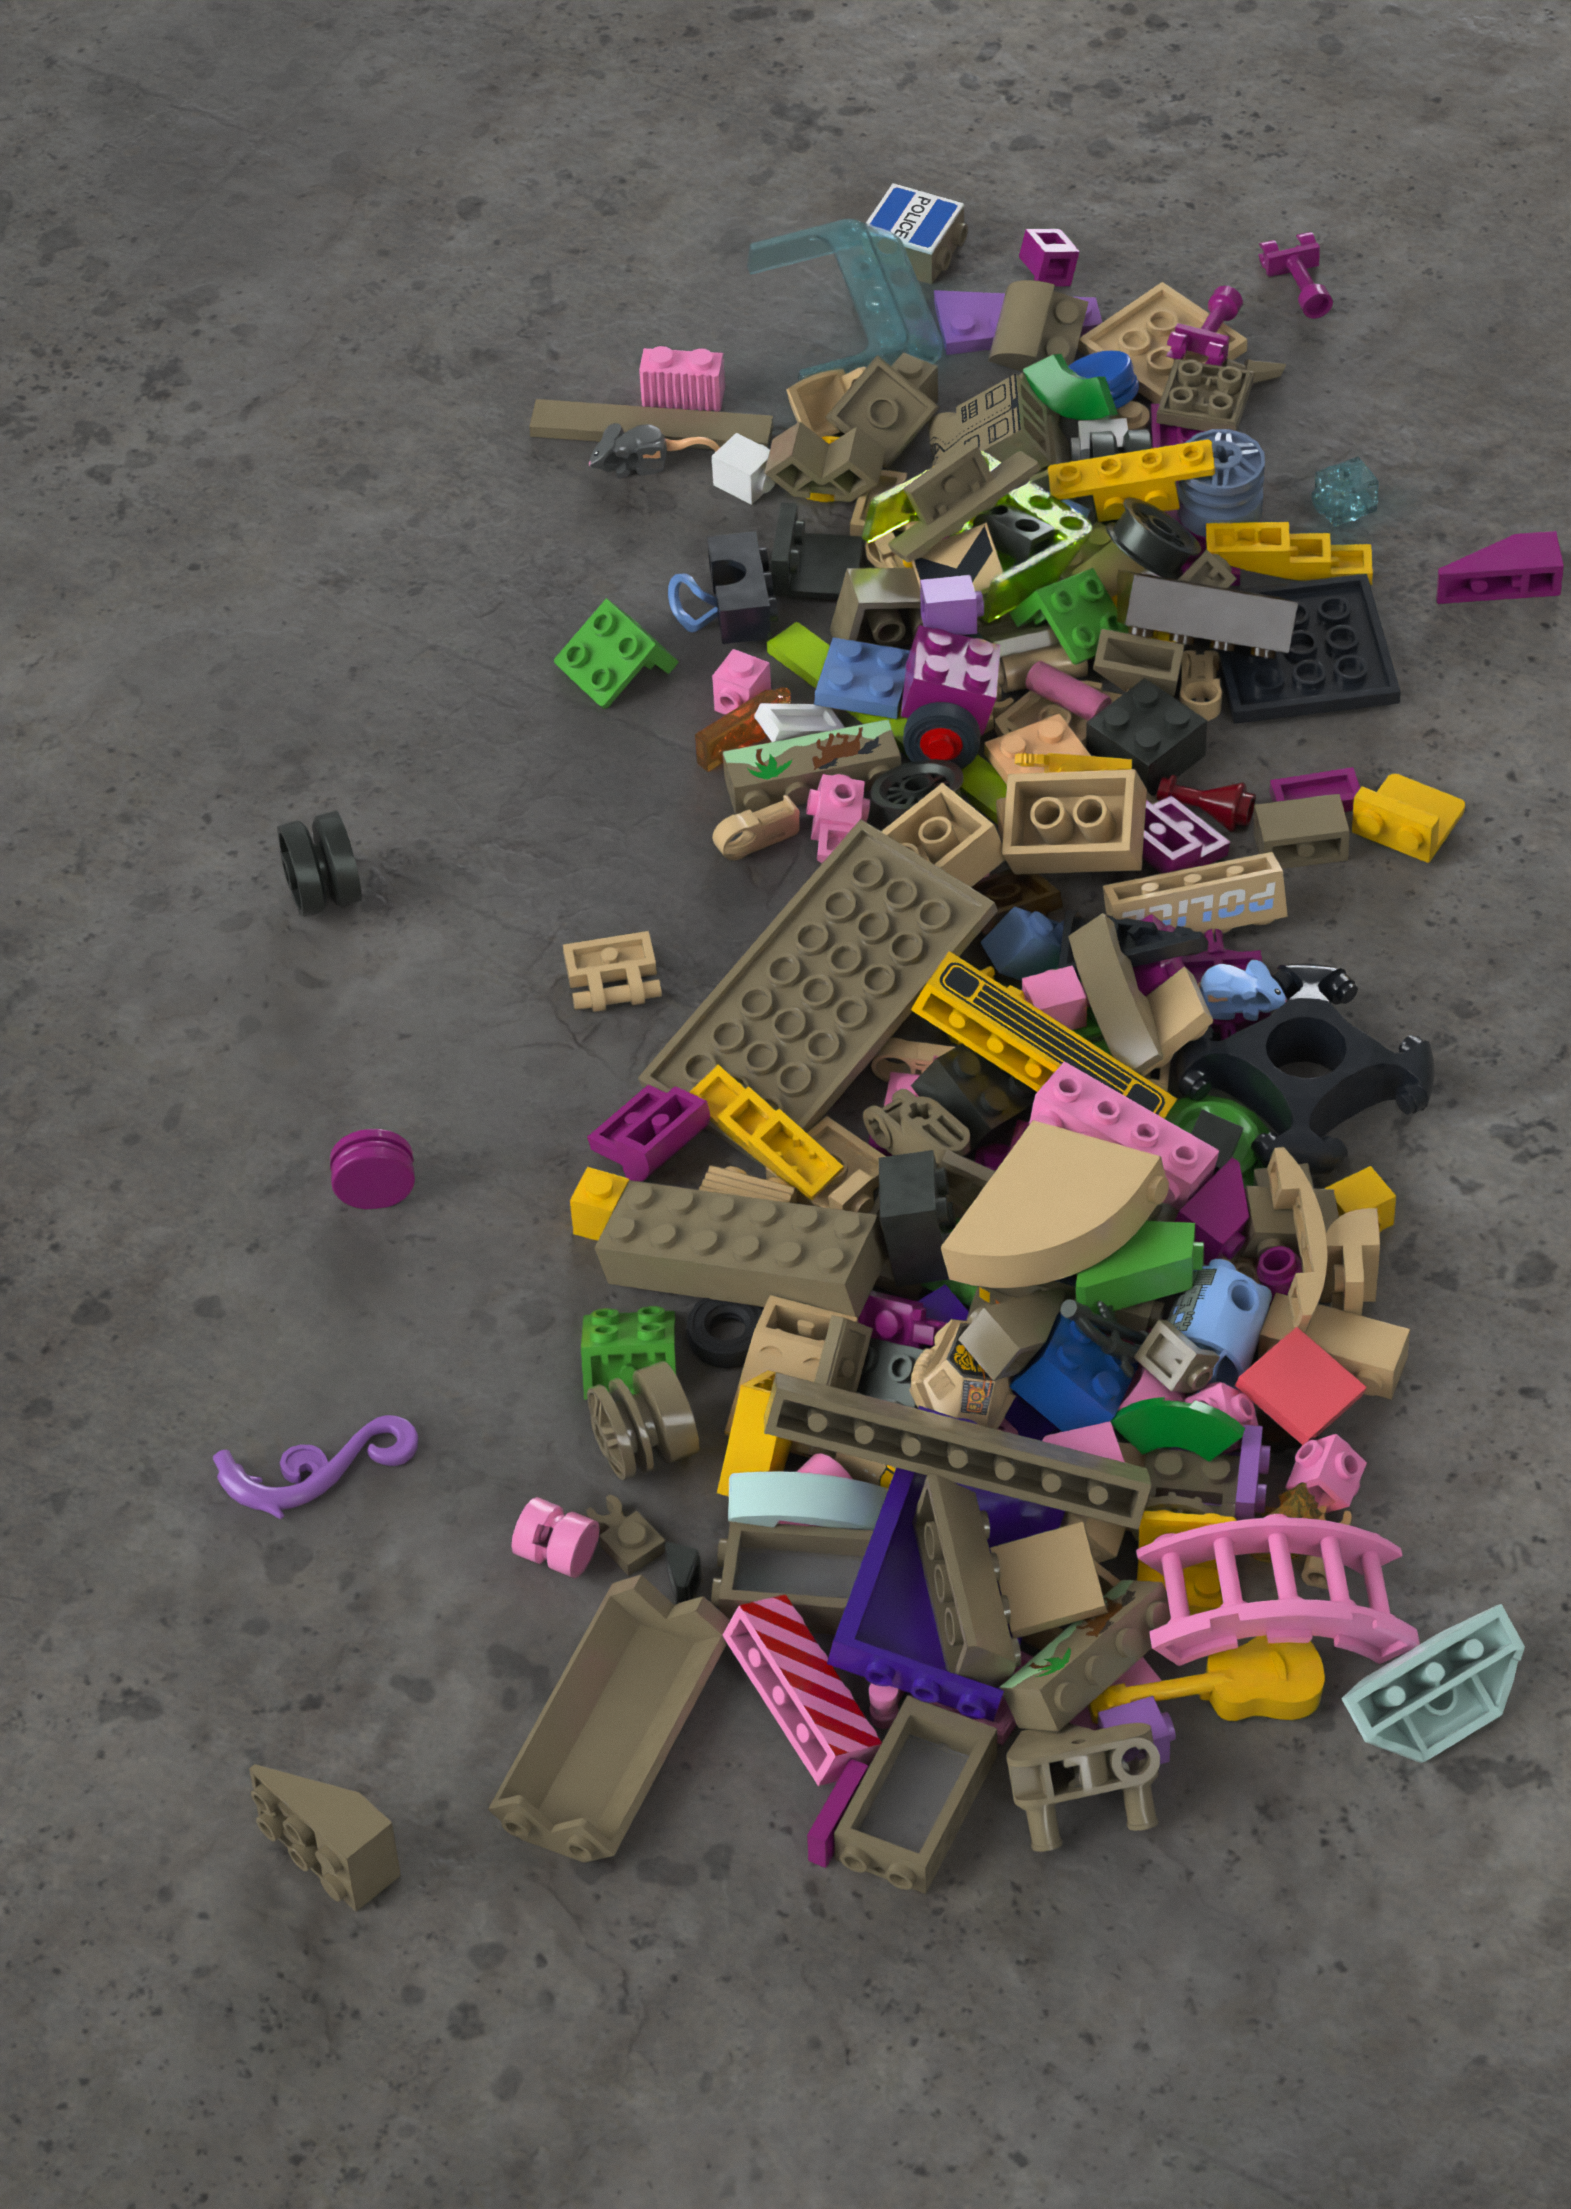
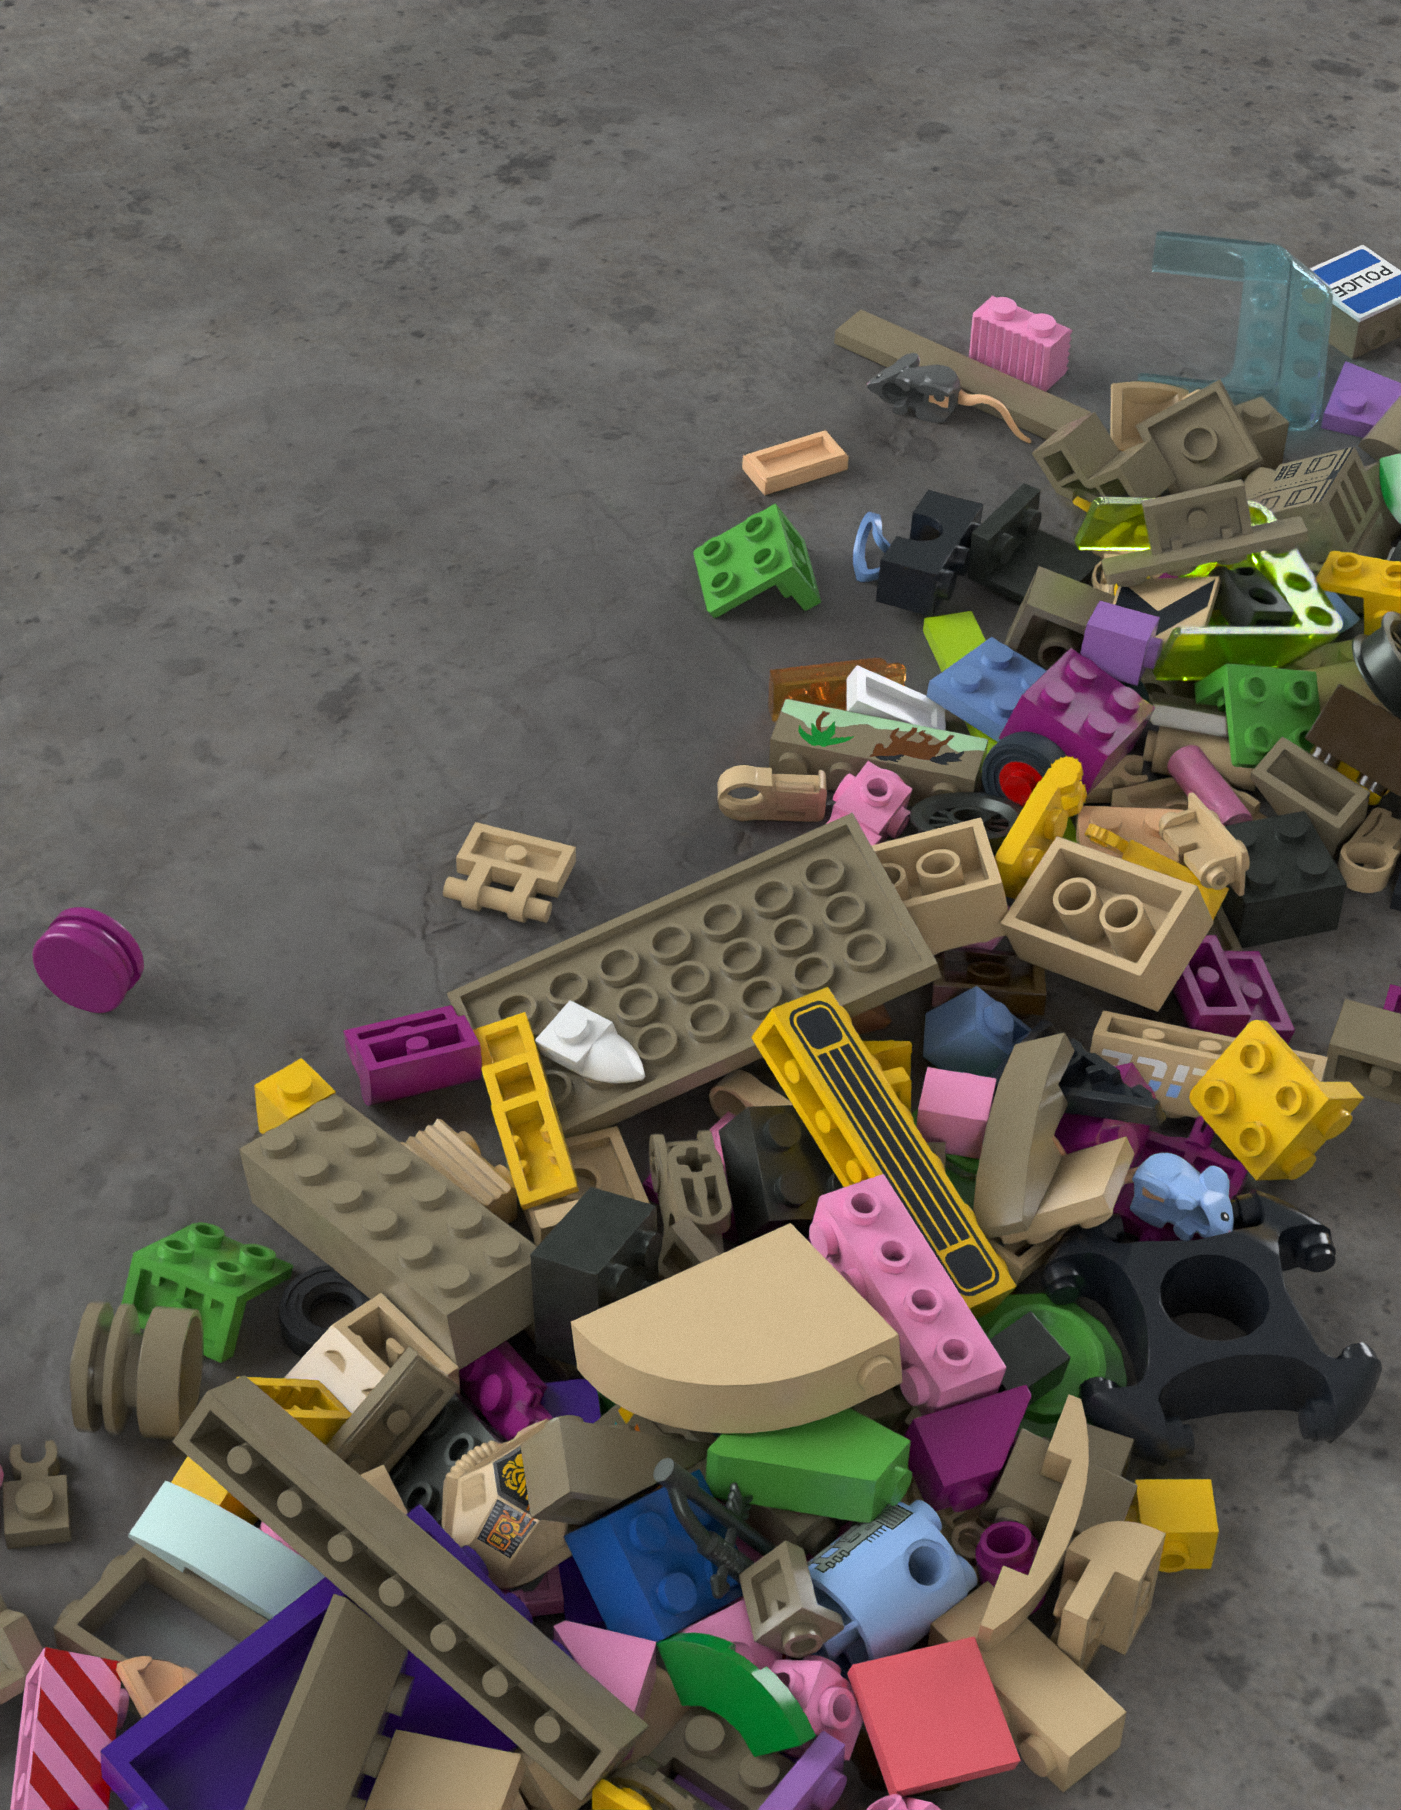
camera: 25 degrees right, 5 degrees down
(312, 865) = (285, 634): pearl dark grey wheel -> none
(576, 554) = (795, 462): none -> light nougat tile
(683, 1570) = (51, 1579): pearl dark grey slope -> none
(739, 680) = (861, 635): bright pink brick -> none
(741, 467) = (1012, 442): white brick -> none
(778, 1068) = (589, 1046): none -> white plate
(820, 1597) = (152, 1681): none -> light nougat tile
(983, 764) = (1039, 822): none -> yellow hinge
(1115, 739) = (1206, 845): none -> tan hinge
(1226, 804) = (1317, 987): dark red piece -> none
(1256, 901) = (1271, 1105): none -> yellow bracket

